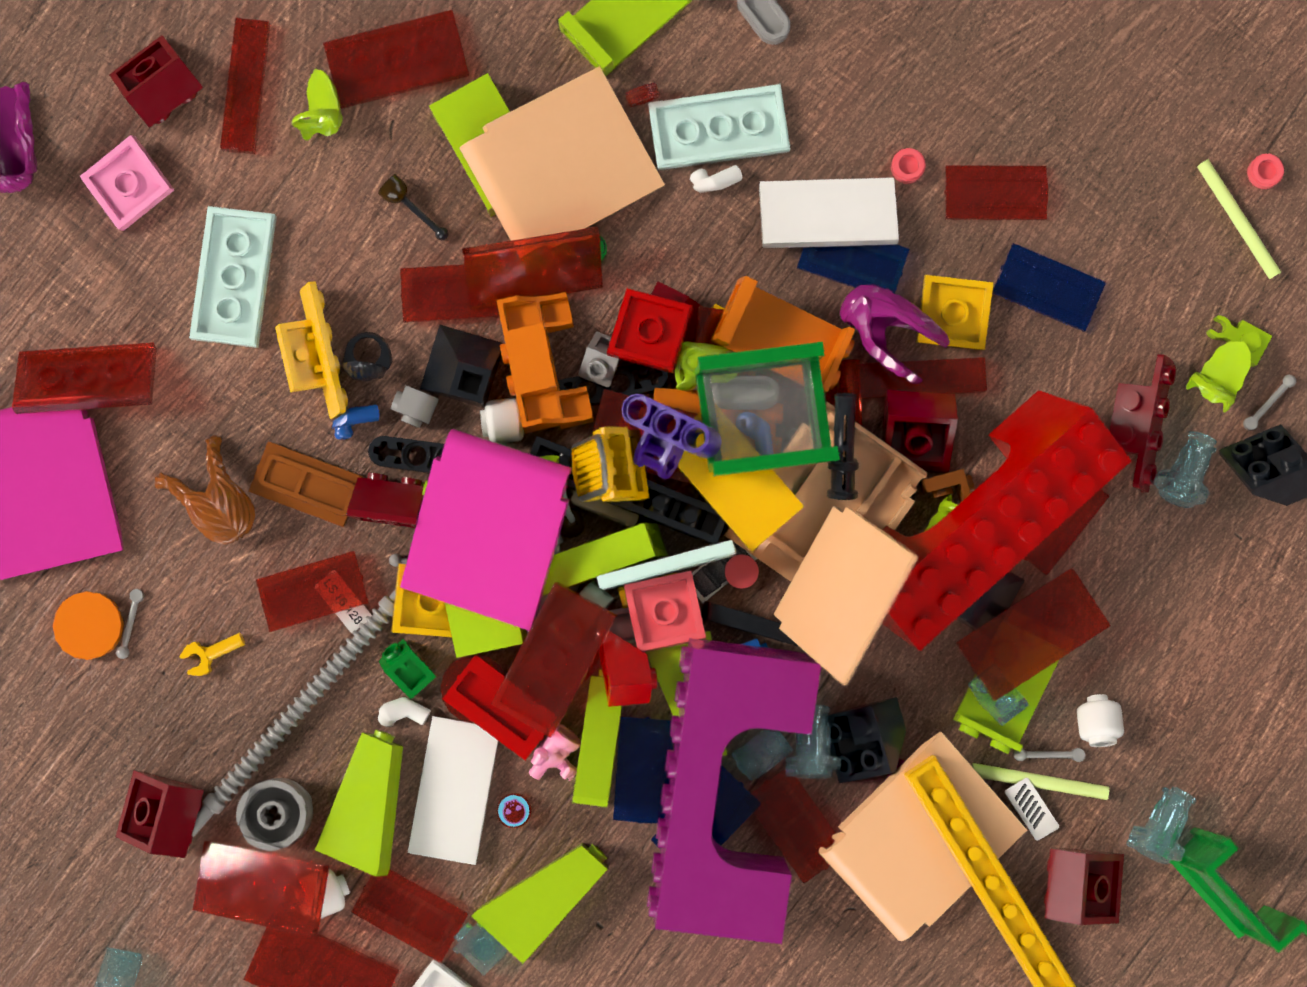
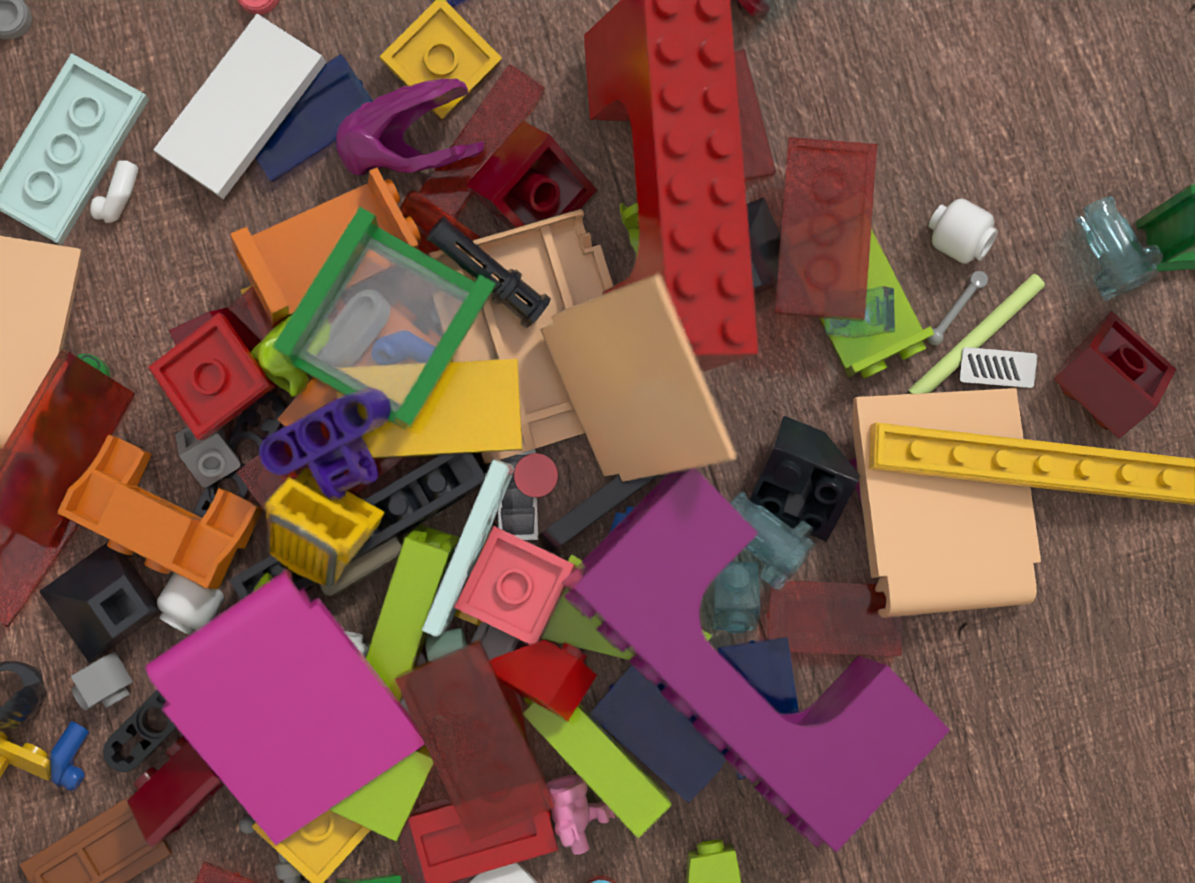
camera: 55 degrees left, 0 degrees up
(572, 515) = (341, 610): dark brown hinge -> none
(942, 484) = (604, 203): dark orange bracket -> none

